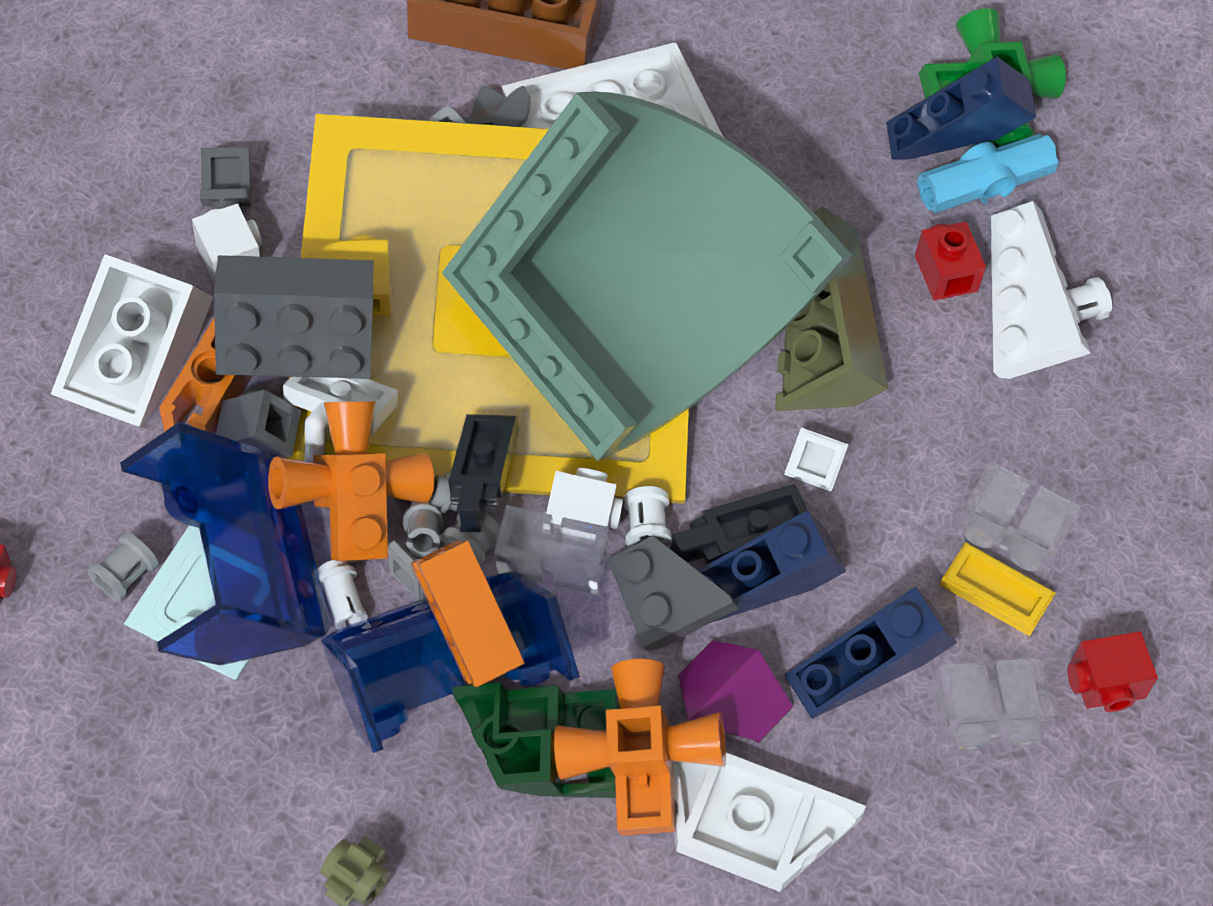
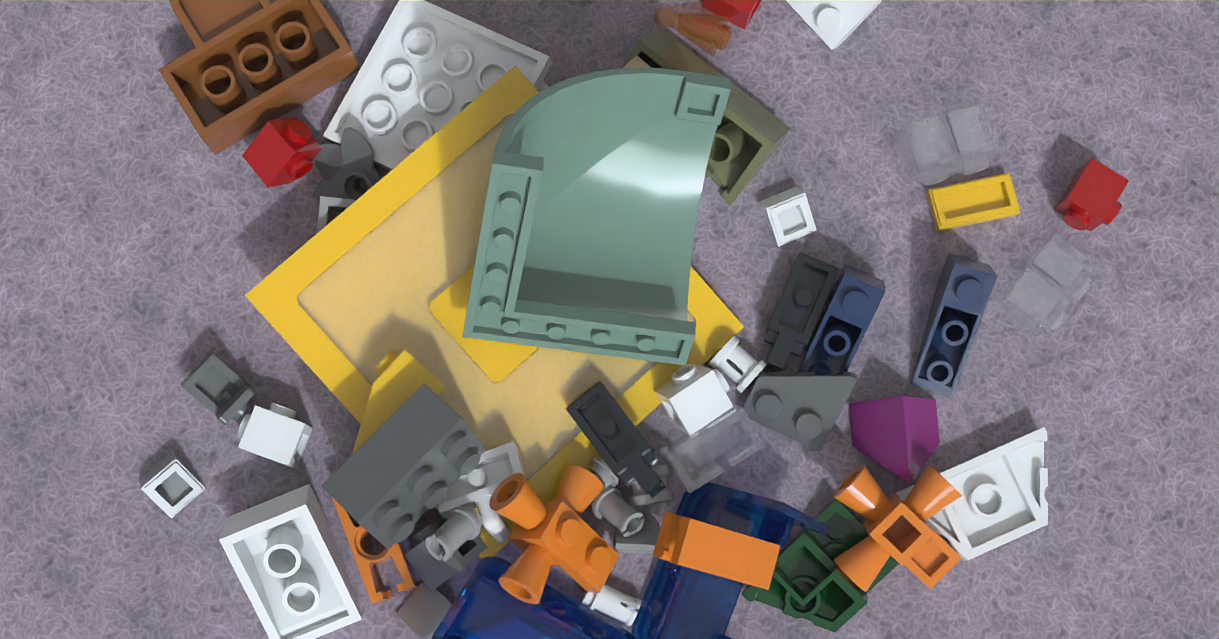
camera: 45 degrees left, 20 degrees up
(115, 215) = (171, 484): none -> light grey slope
(289, 404) = (461, 526): none -> light grey pin
(457, 67) = (282, 151): none -> red brick
(896, 270) = (704, 30): none -> clear orange cone

